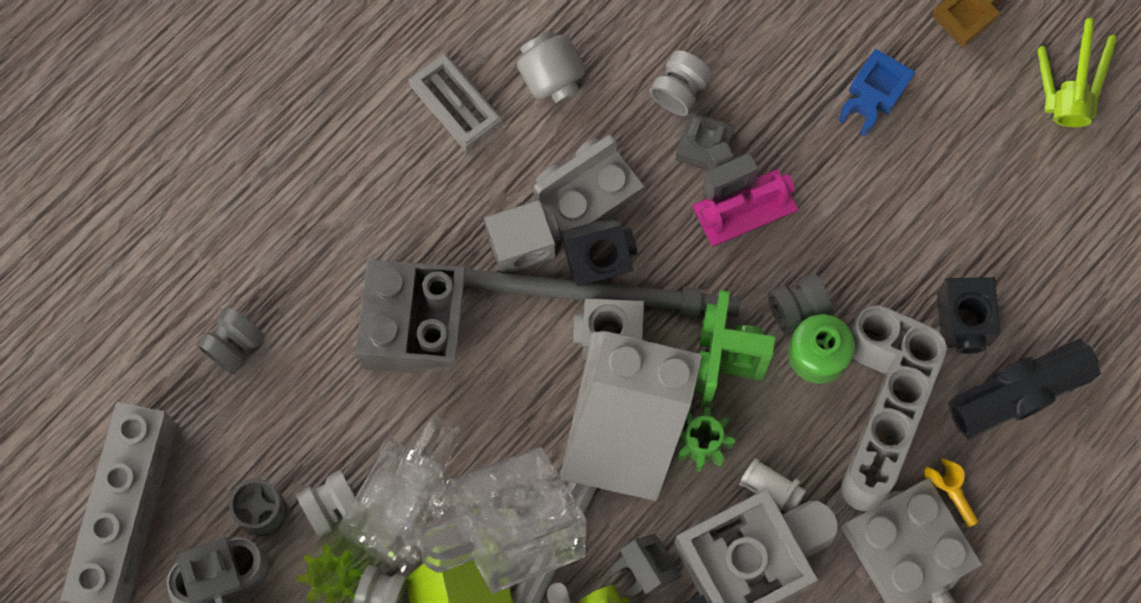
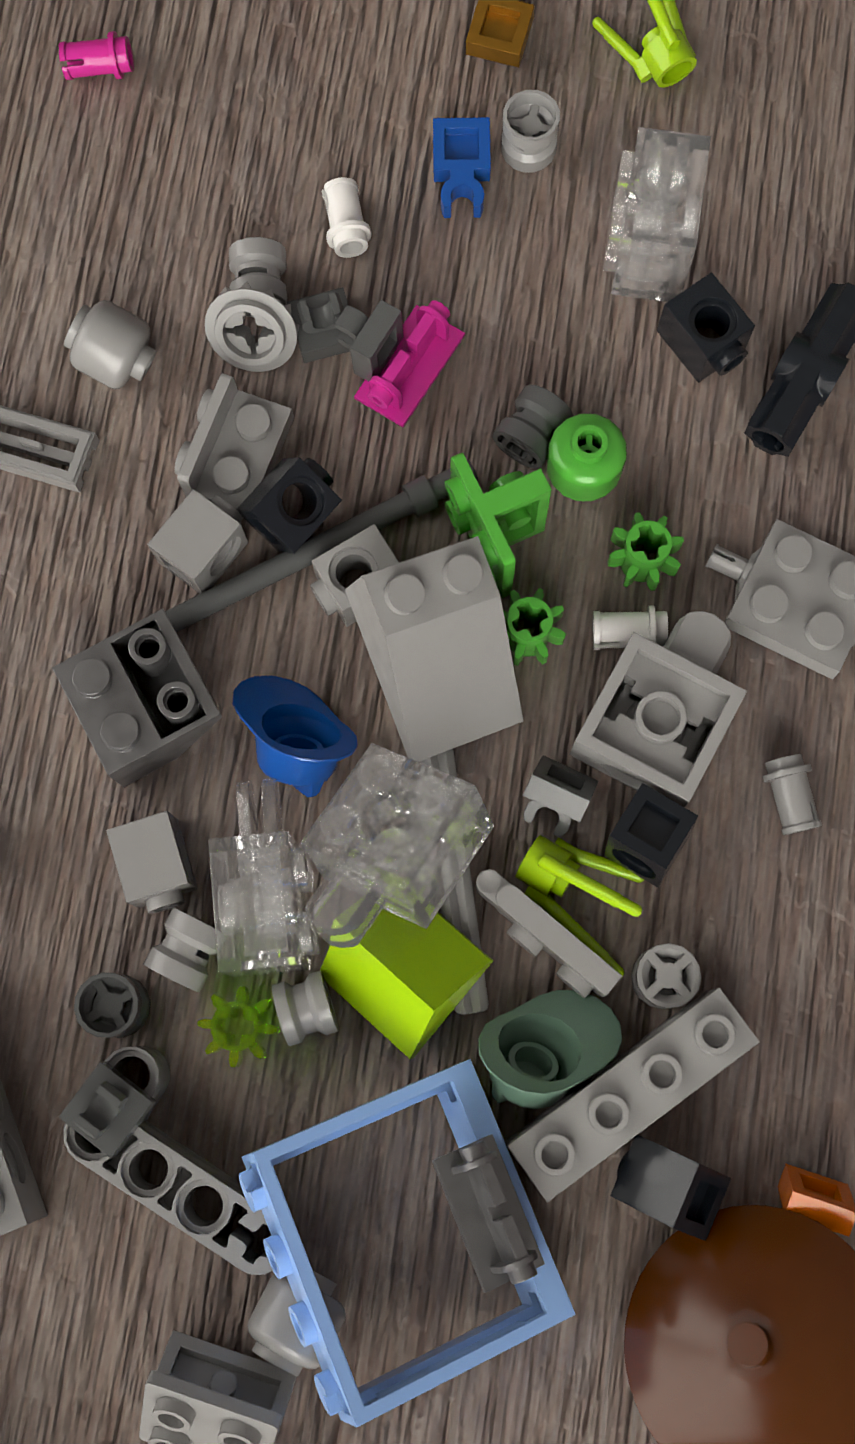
camera: 30 degrees left, 5 degrees up
(347, 431) = (152, 862): none -> light grey brick
(497, 404) = (293, 731): none -> blue piece
(637, 116) = (234, 340): none -> light grey gear
(765, 88) = (347, 230): none -> white pin
(832, 438) = (654, 539): none -> bright green gear
(888, 413) = (694, 478): light grey beam -> none
(938, 88) = (530, 130): none -> light grey wheel
(952, 485) = (801, 508): yellow hand -> none
(982, 212) = (656, 214): none -> clear brick

